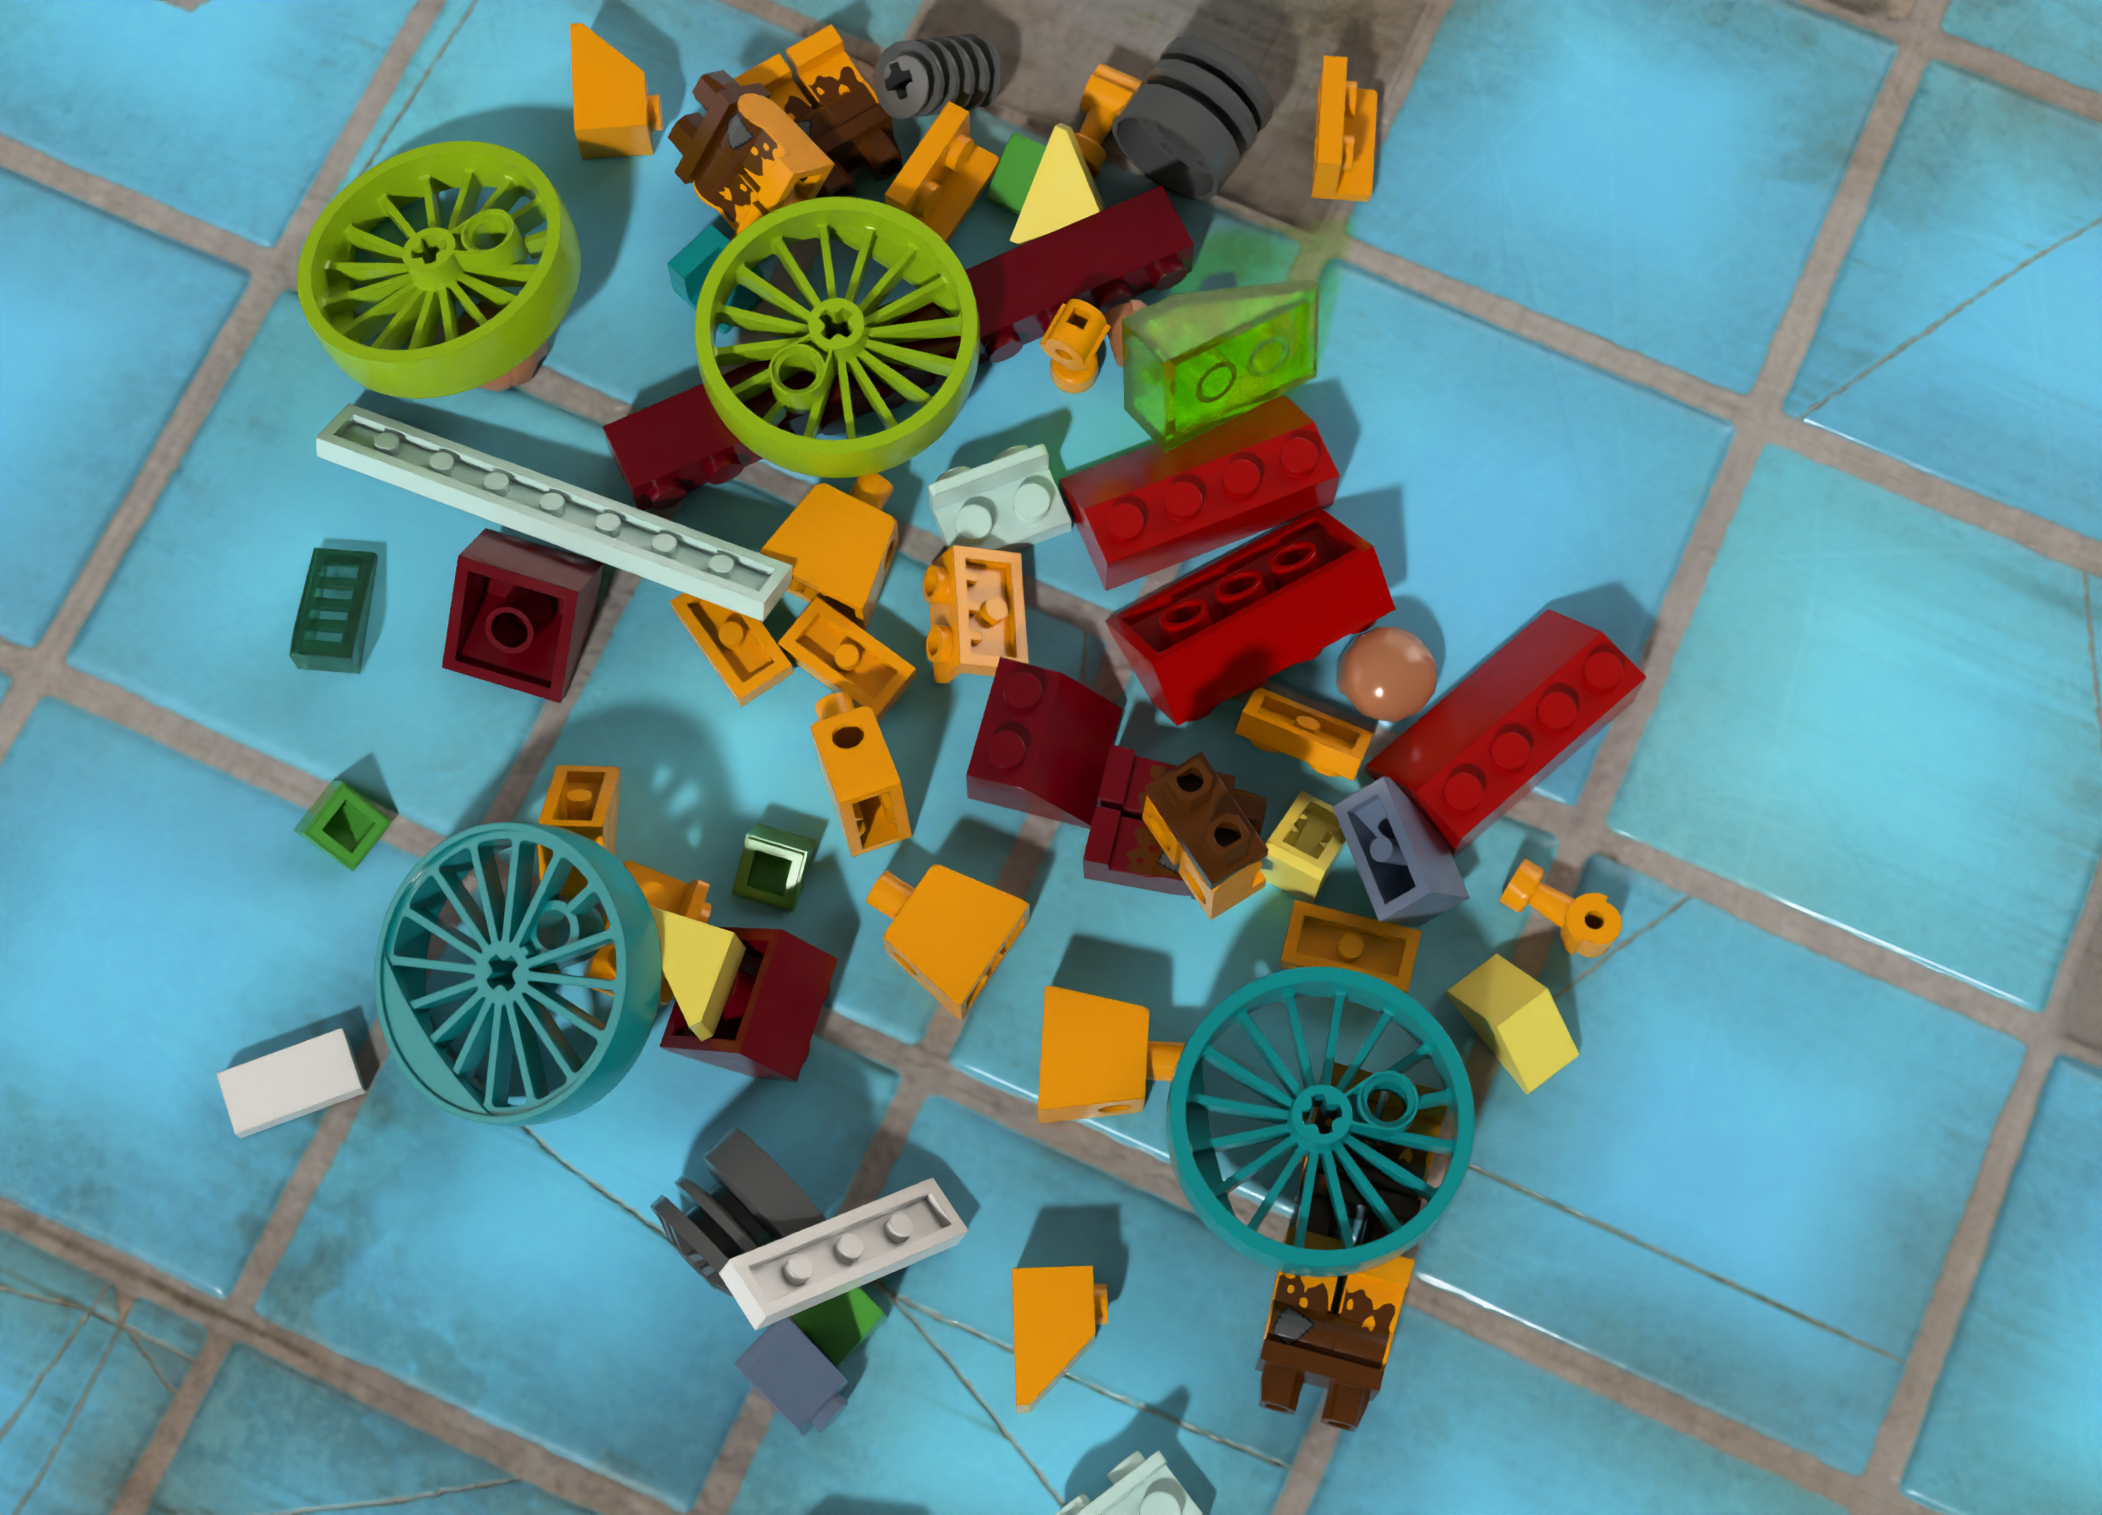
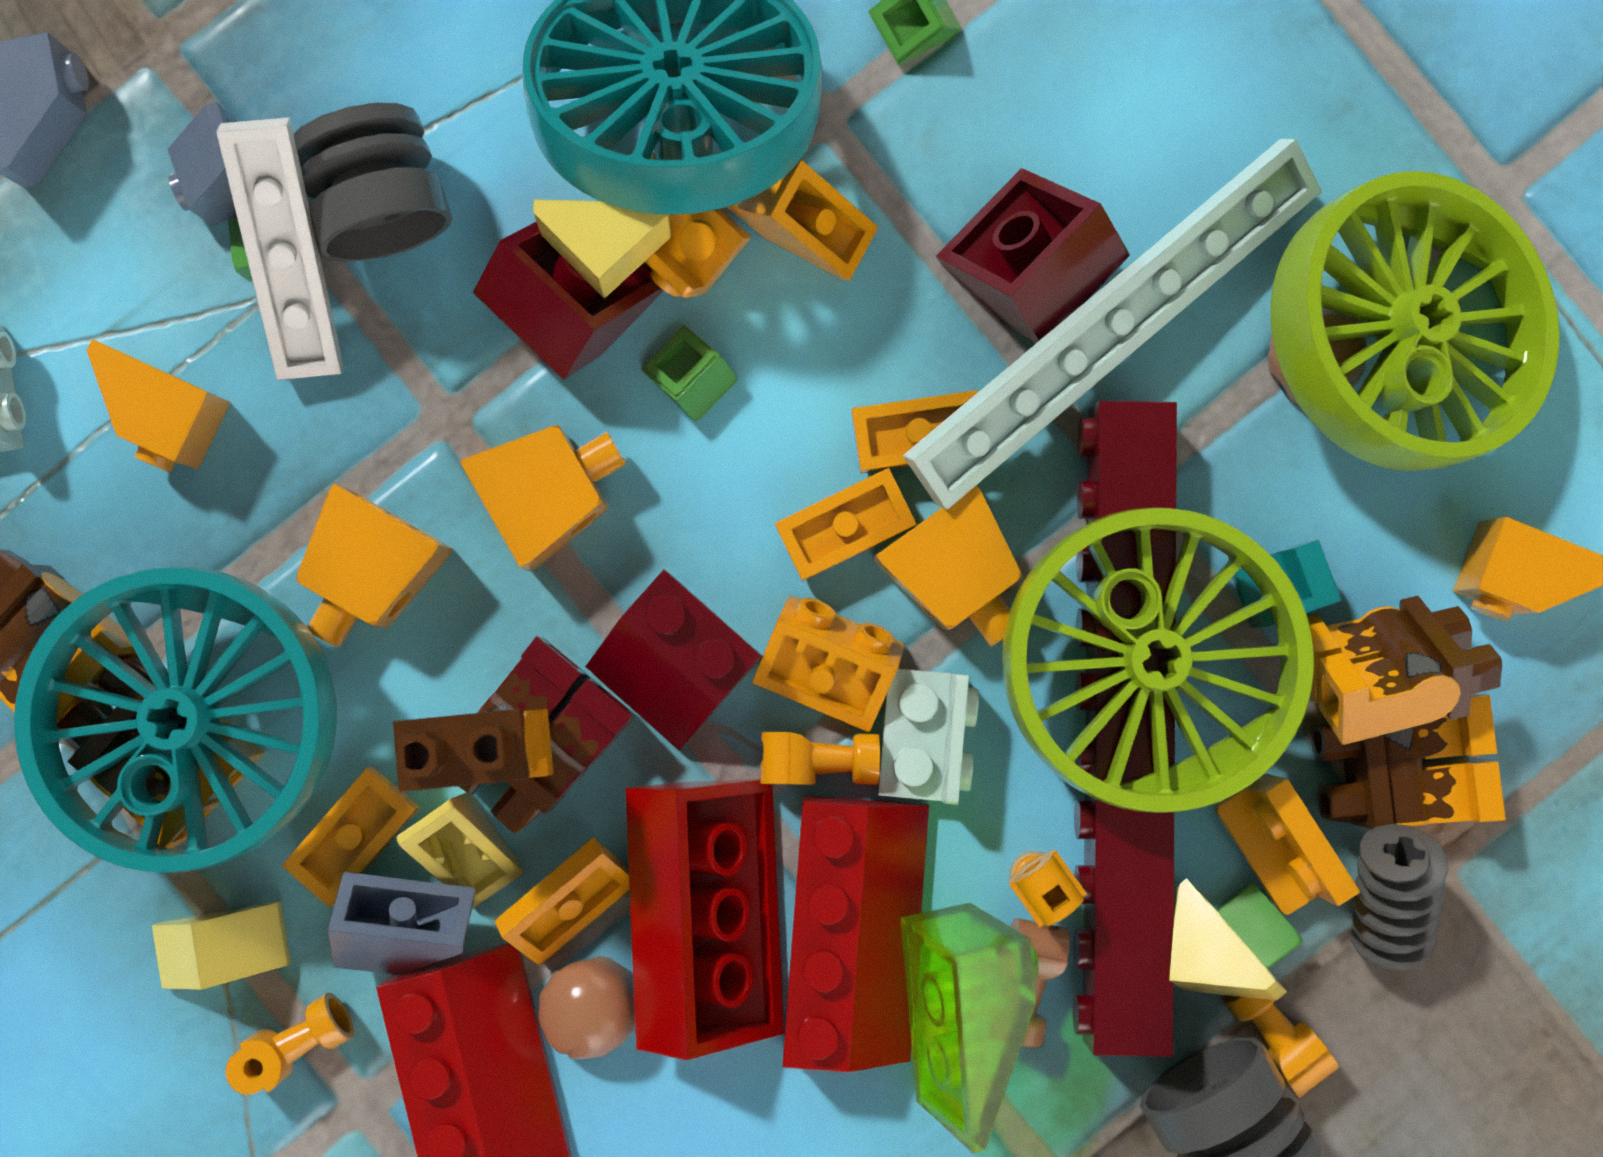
camera: 120 degrees right, 15 degrees up
(330, 655) = (1118, 64): clear green slope -> none
(859, 774) = (700, 478): light orange torso -> none
(1076, 600) = (795, 760): none -> light orange leg

